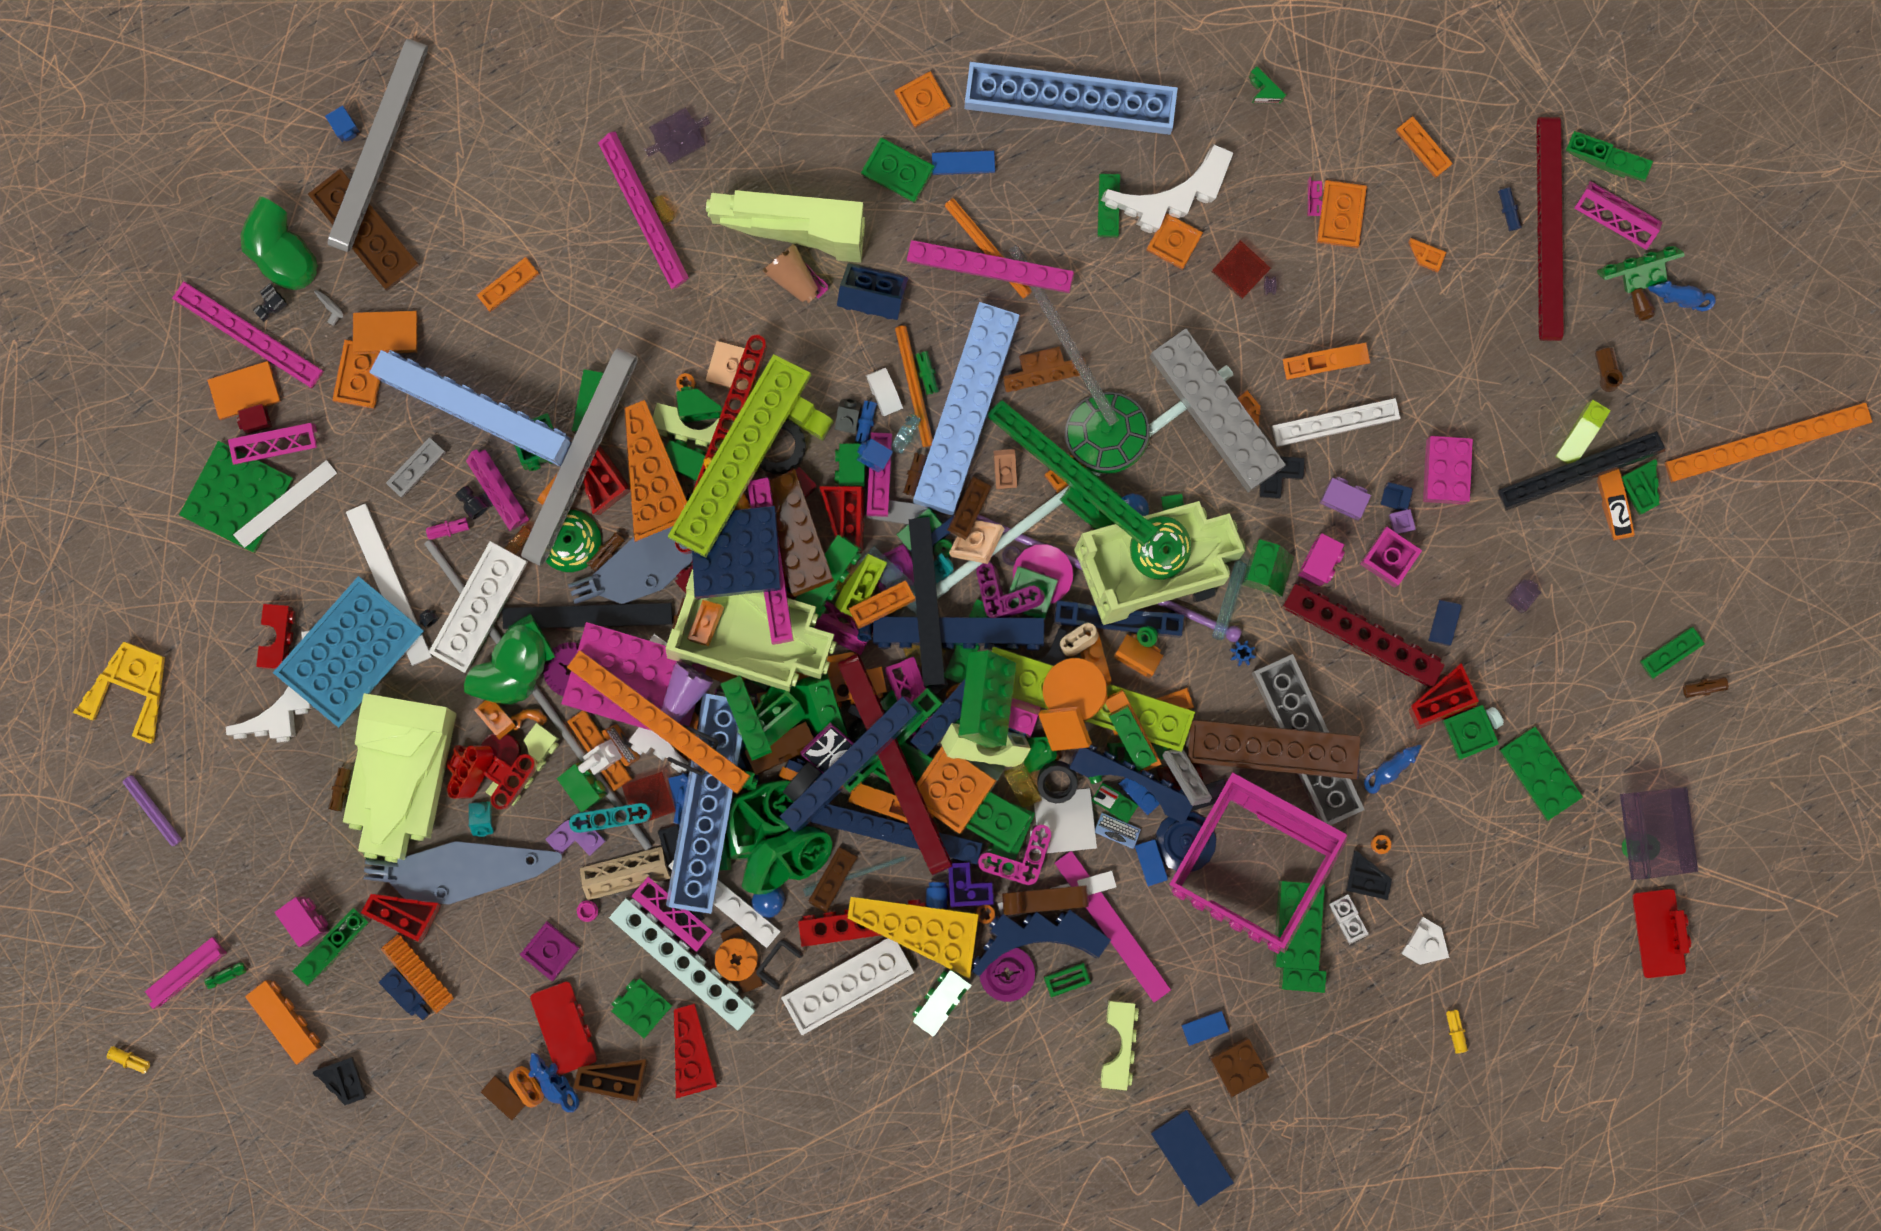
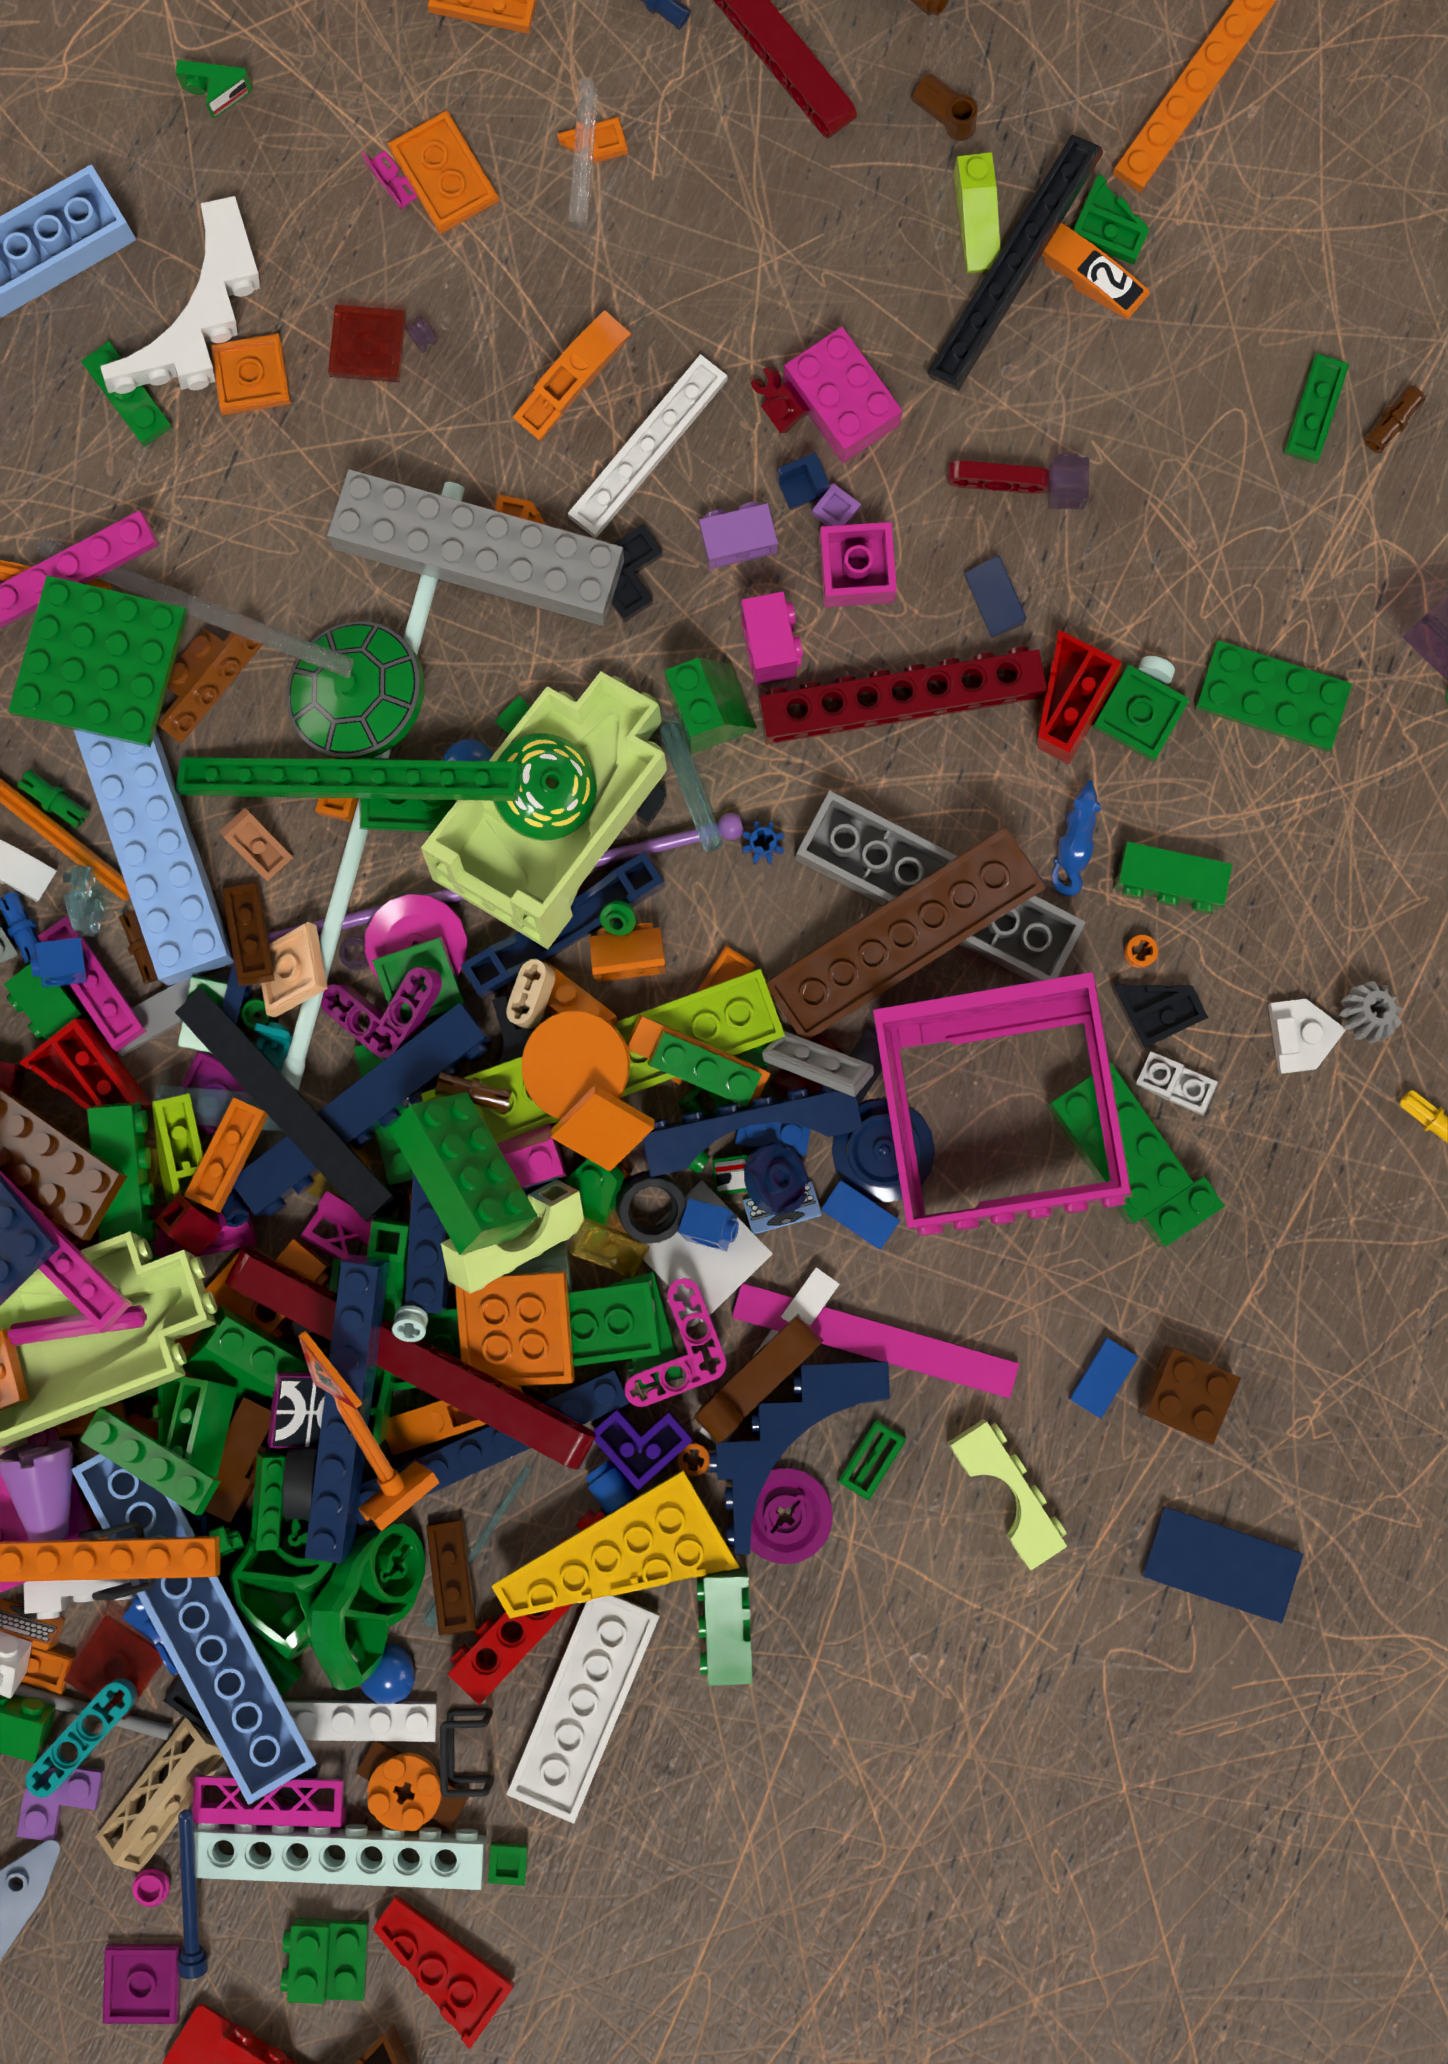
camera: 40 degrees left, 0 degrees up
(582, 957) = (192, 1960): none -> dark blue piece
(754, 628) = (71, 1326): none -> dark pink axle
(757, 1029) = (508, 1863): none -> green plate
(780, 777) = (267, 1501): none -> green piece
(840, 622) = (188, 1224): none -> dark red brick
(844, 819) = (397, 1489): none -> orange piece
(905, 752) = (416, 1329): none -> light aqua bush
(999, 328) = (98, 661): none -> green plate
(1021, 668) = (479, 1093): none -> reddish brown pin
(1077, 811) = (708, 1225): none -> blue brick
(1125, 815) = (775, 1179): none -> dark blue tile
(1411, 263) = (583, 154): none -> clear tile
(1416, 451) = (783, 402): none -> dark red plate
(1423, 821) = (1172, 877): none -> green brick
(1467, 950) = (1371, 1012): none -> light grey gear
(1488, 564) = (998, 477): none -> dark red beam

